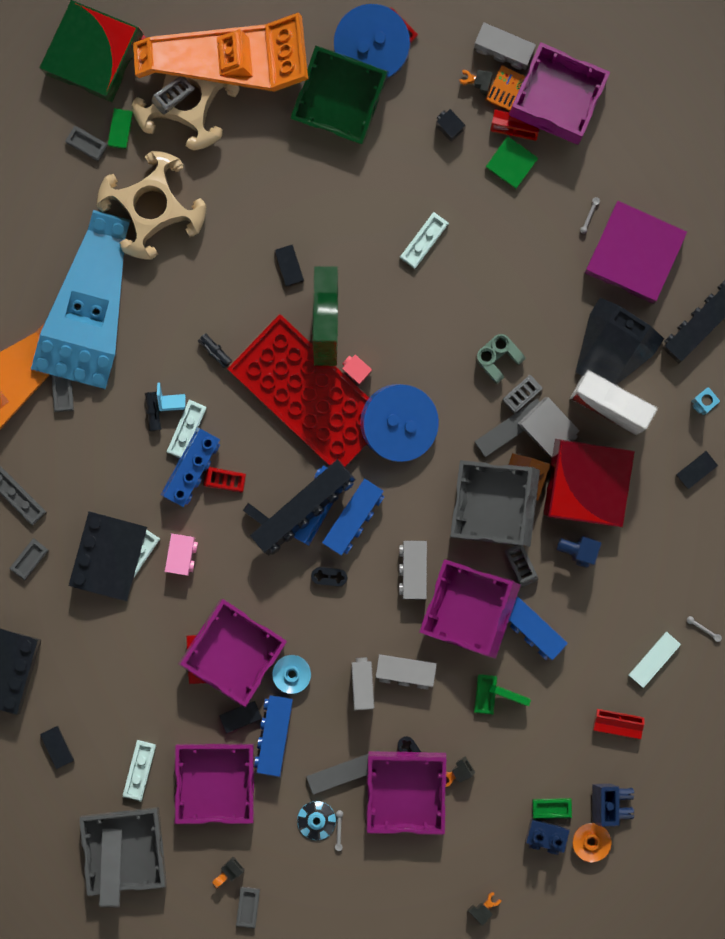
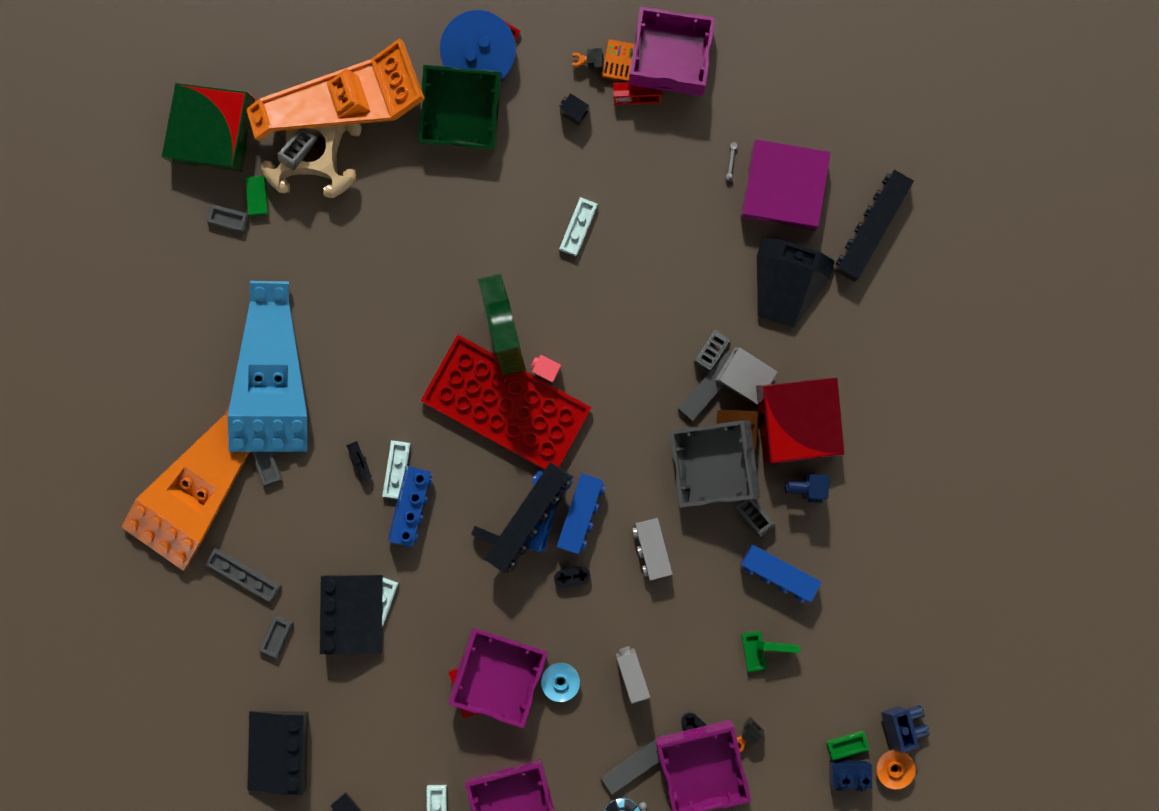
camera: 10 degrees left, 0 degrees up
(148, 227) = (282, 259): tan piece -> none
(170, 402) = (373, 447): medium azure bracket -> none
(180, 554) = (421, 594): bright pink brick -> none
(208, 474) = (462, 505): red slope -> none
(215, 351) = (404, 386): black pin -> none
(240, 717) = (521, 737): black tile -> none
(274, 735) = (559, 747): blue brick -> none
(289, 265) = (454, 285): black tile -> none
(399, 422) = (601, 409): blue brick -> none
(405, 671) = (670, 650): light grey brick -> none
(470, 608) = (717, 573): magenta tile -> none
(504, 46) = (606, 20): light grey brick -> none
(510, 348) = (689, 310): sand green piece -> none
(511, 162) = (642, 130): green tile -> none
(613, 403) = (805, 336): white tile -> none
(618, 724) = (890, 646): red piece -> none
(654, 659) = (908, 574): light aqua tile -> none
(697, 470) = (899, 379): black tile -> none
(699, 406) = (885, 316): medium azure bracket -> none
(717, 637) = (963, 537): light grey hinge -> none

